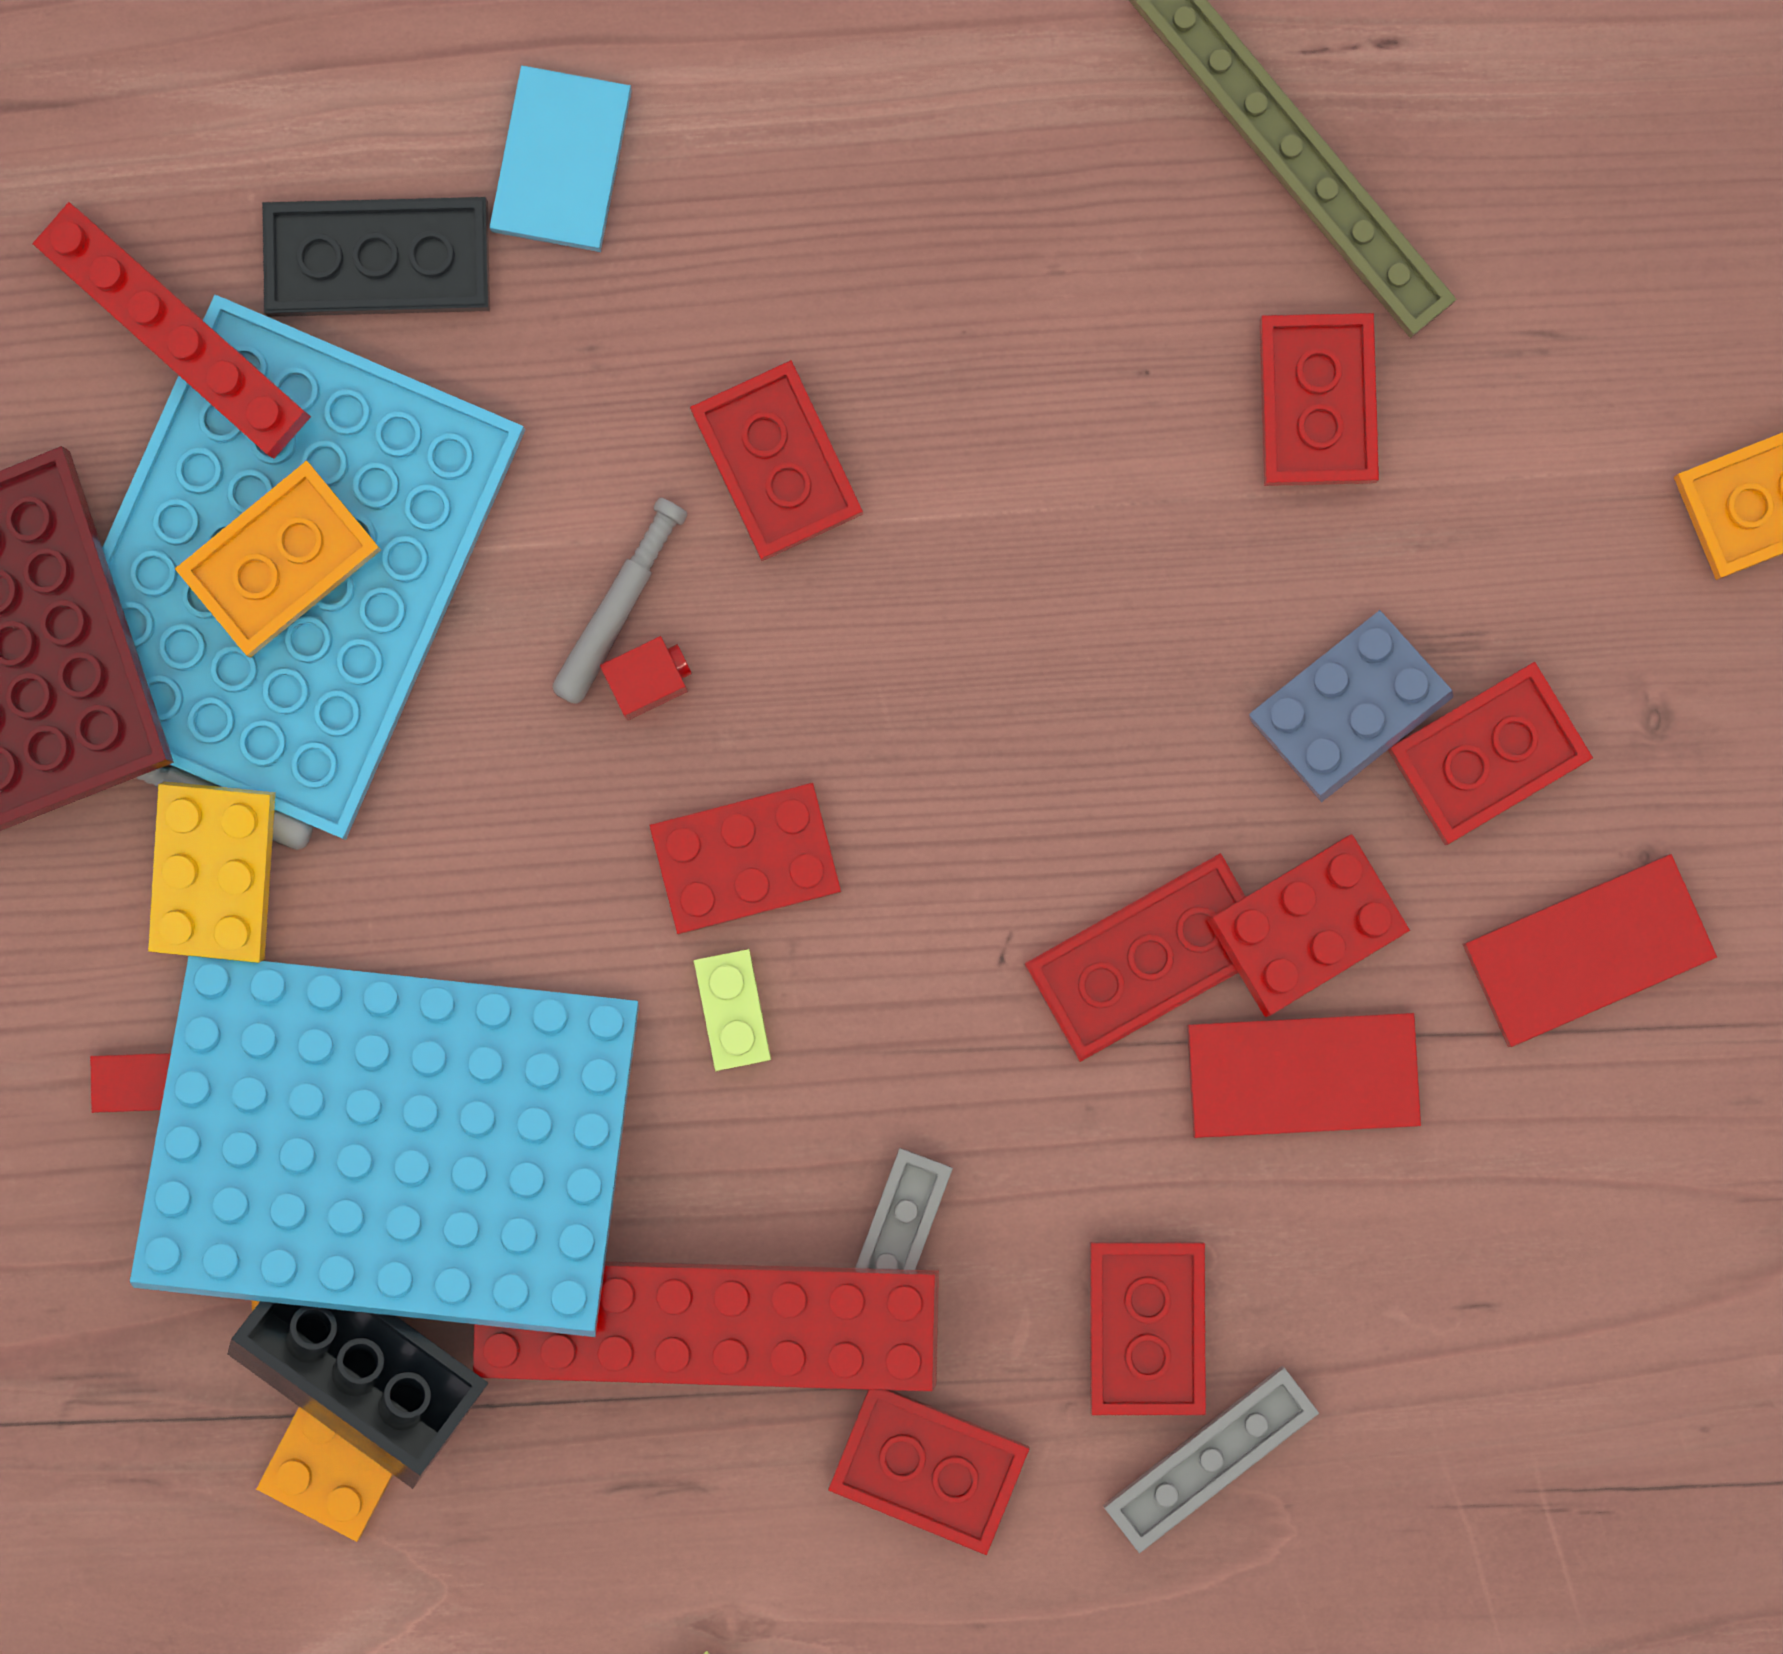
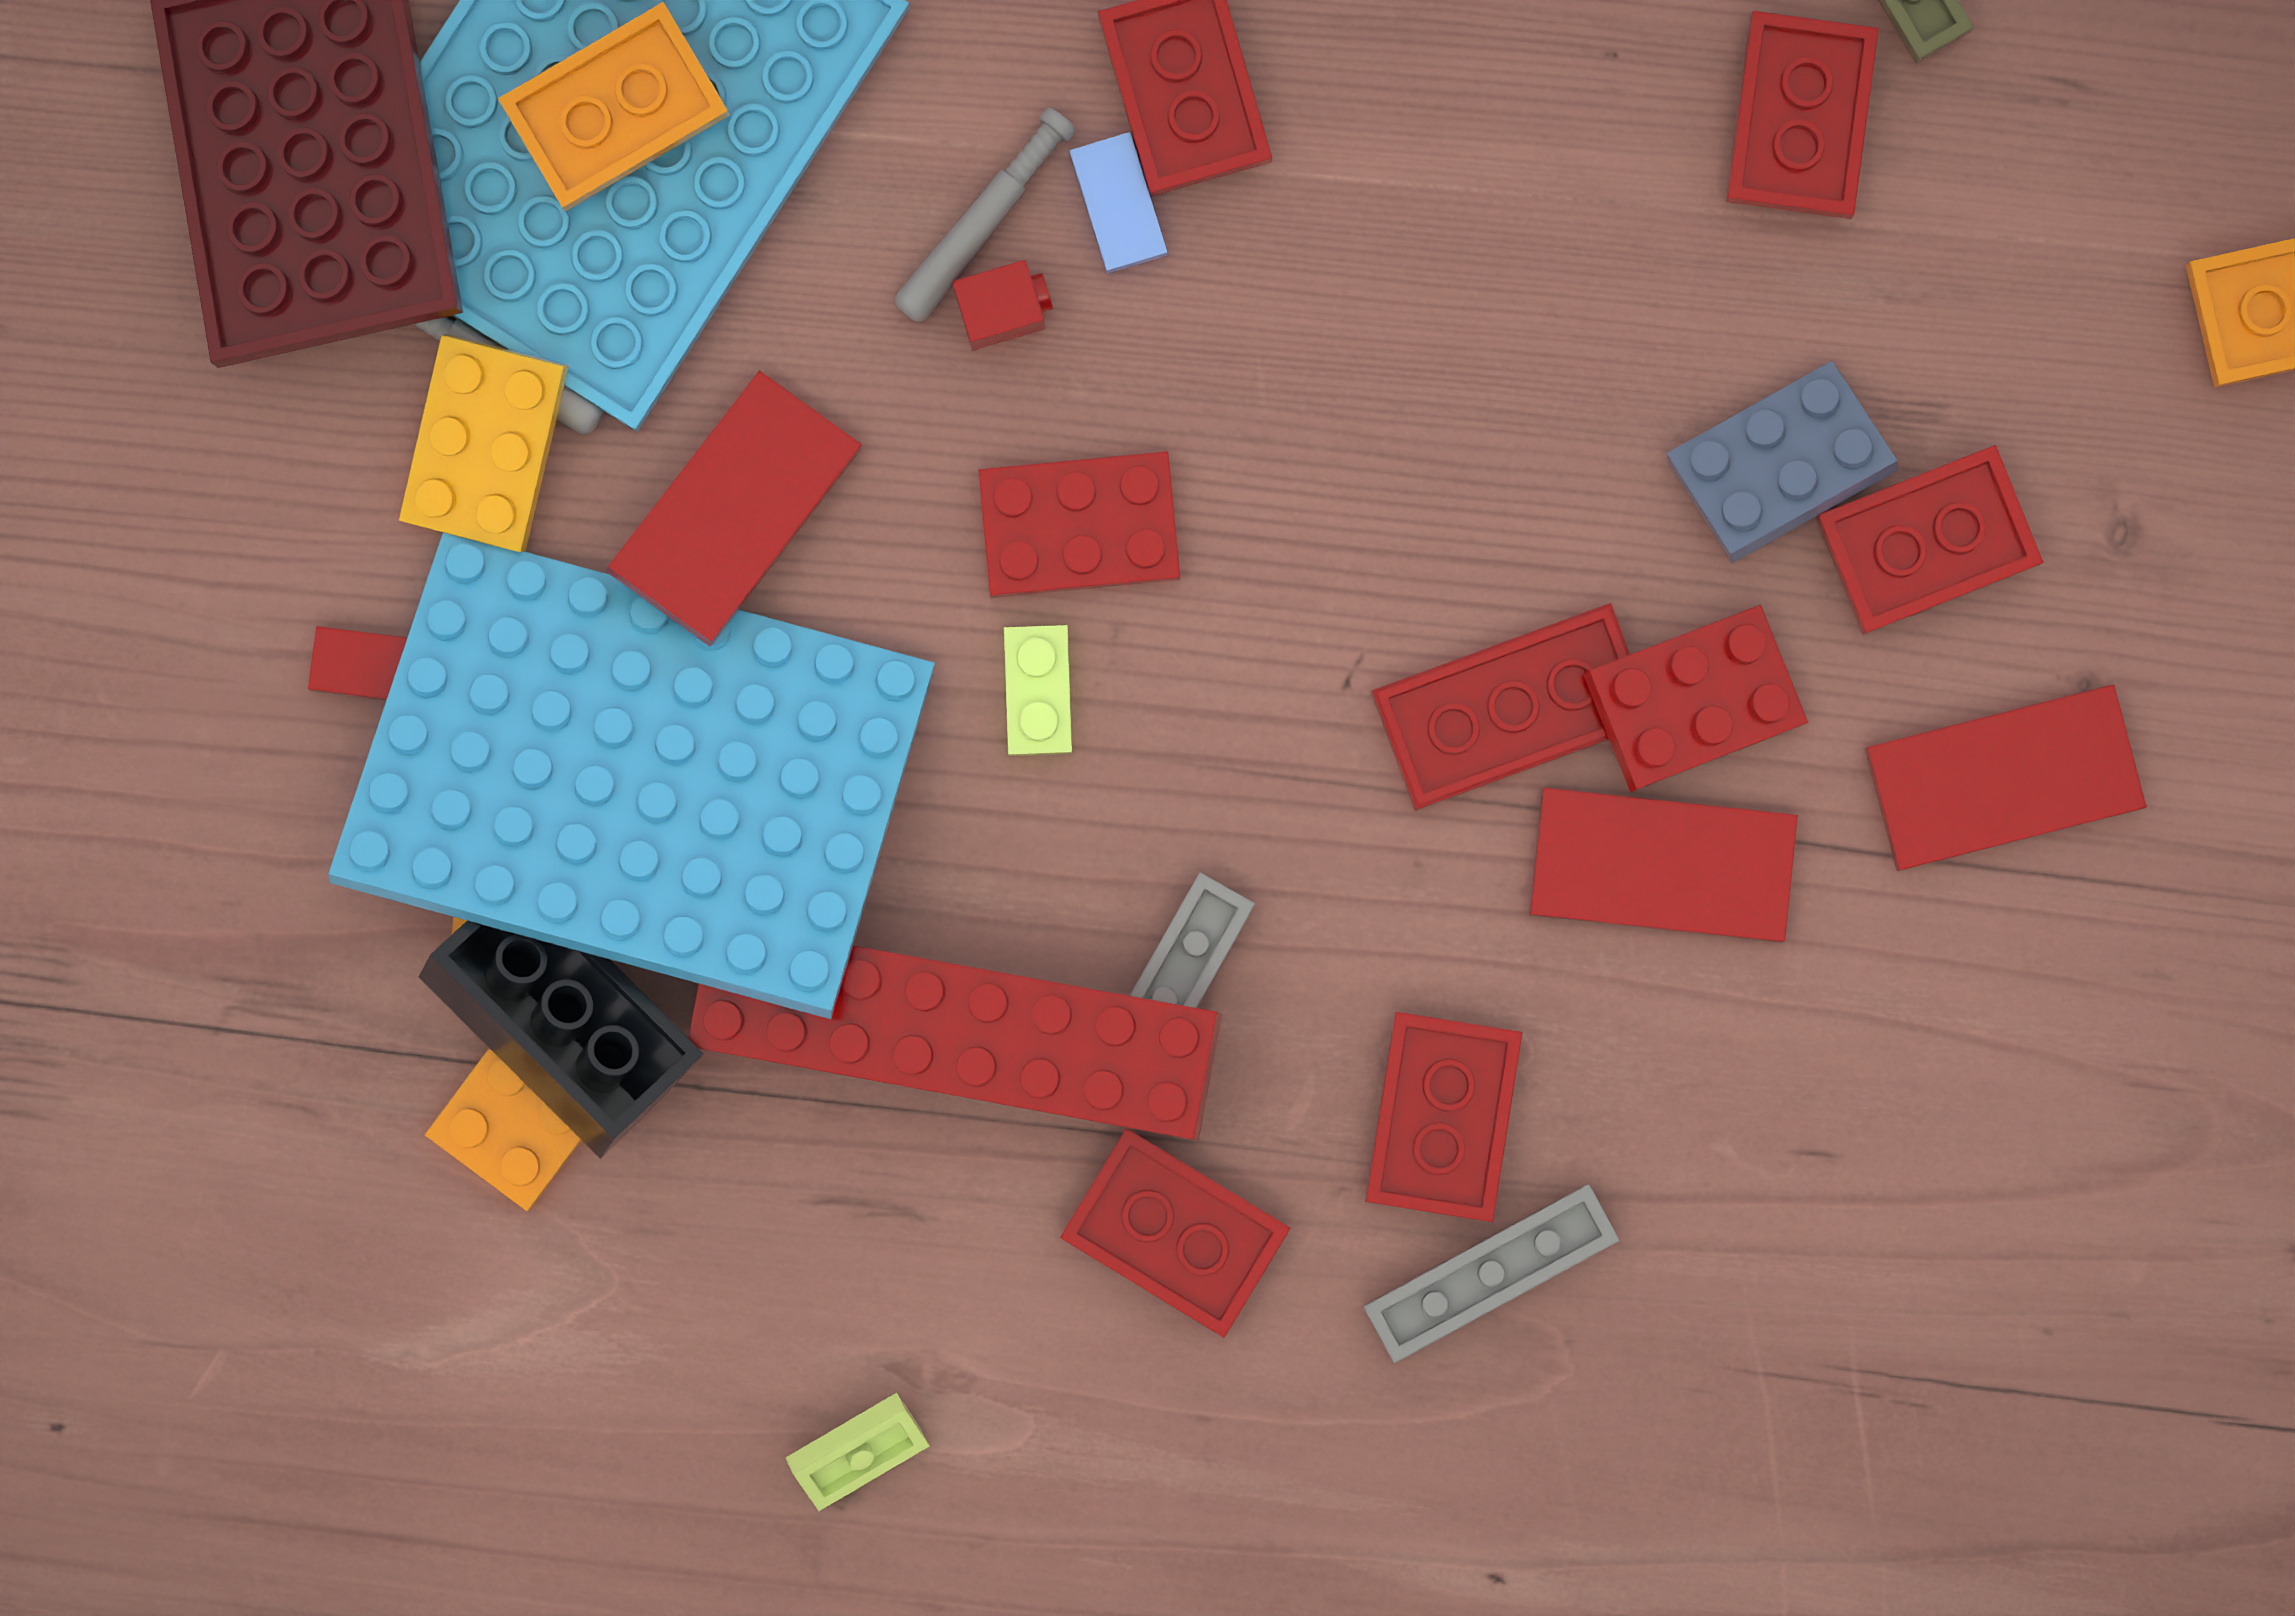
camera: 10 degrees right, 0 degrees up
(440, 894) = (734, 508): none -> red tile
(734, 571) = (1118, 202): none -> light blue tile

